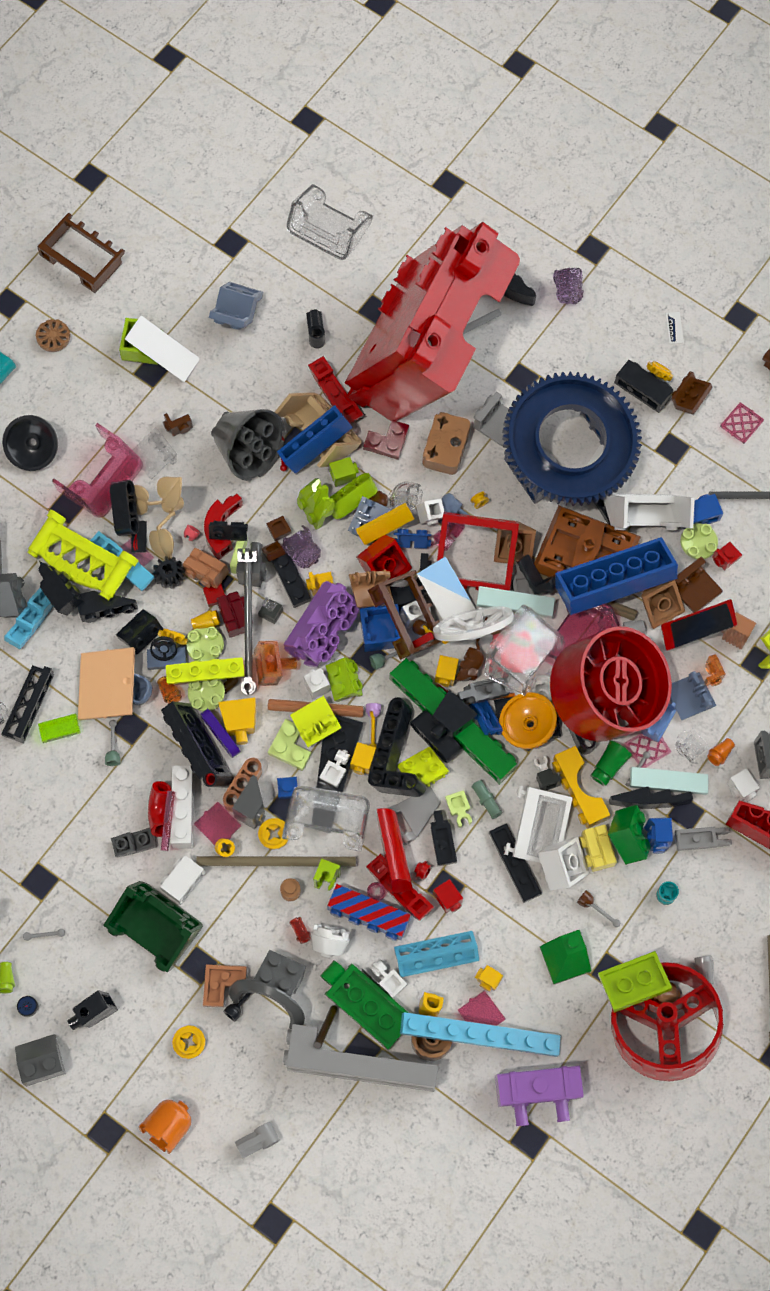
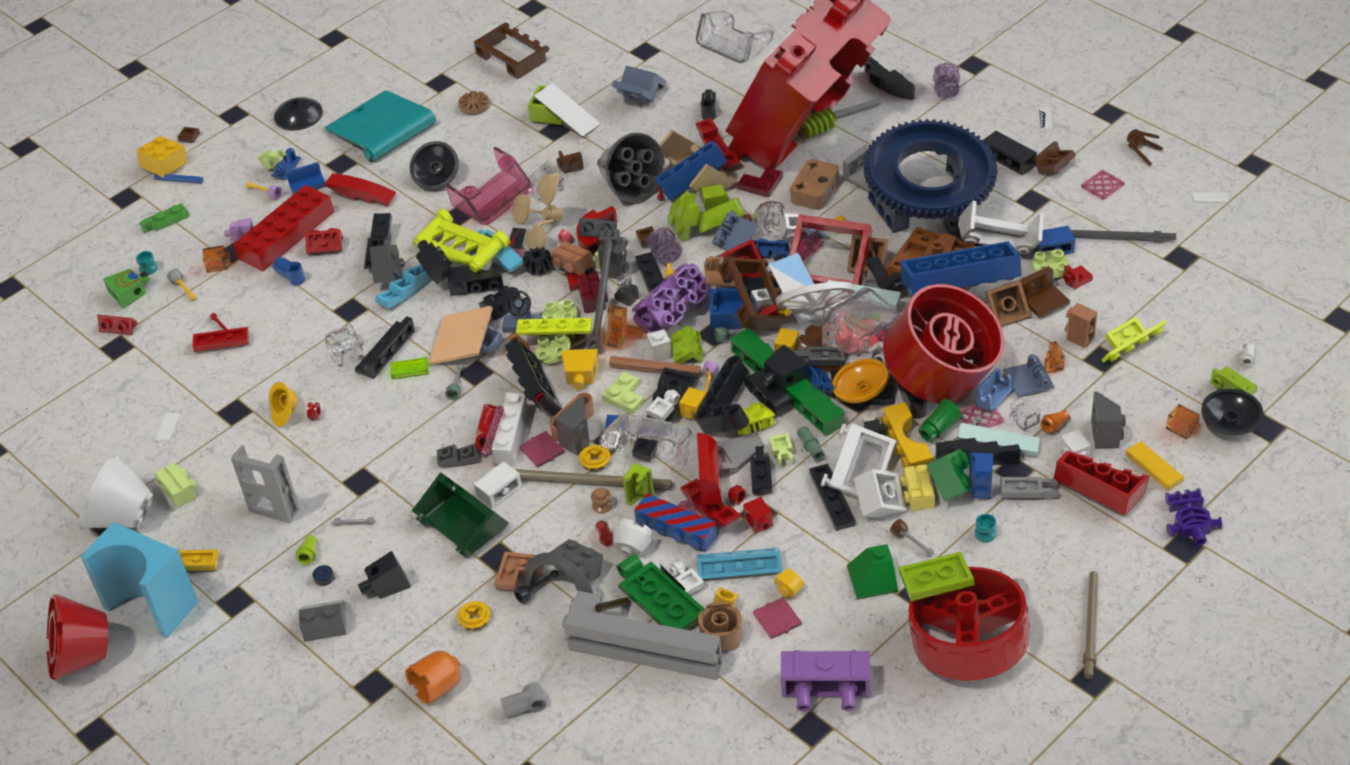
camera: 15 degrees right, 25 degrees down
(124, 508) = (507, 210): black beam -> none
(177, 637) = (536, 305): yellow gear -> none
(206, 620) = (567, 293): yellow cone -> none
(220, 733) = (559, 378): dark purple beam -> none
(231, 848) = (546, 456): yellow bush -> none
(273, 551) = (638, 251): reddish brown tile -> none
(315, 721) = (652, 371): neon yellow hinge -> none
(385, 524) = (745, 231): yellow tile -> none
(480, 1034) = (768, 621): medium azure plate -> none
(659, 370) = (1025, 140): yellow gear -> none
(699, 624) = (1041, 317): black sticker -> none

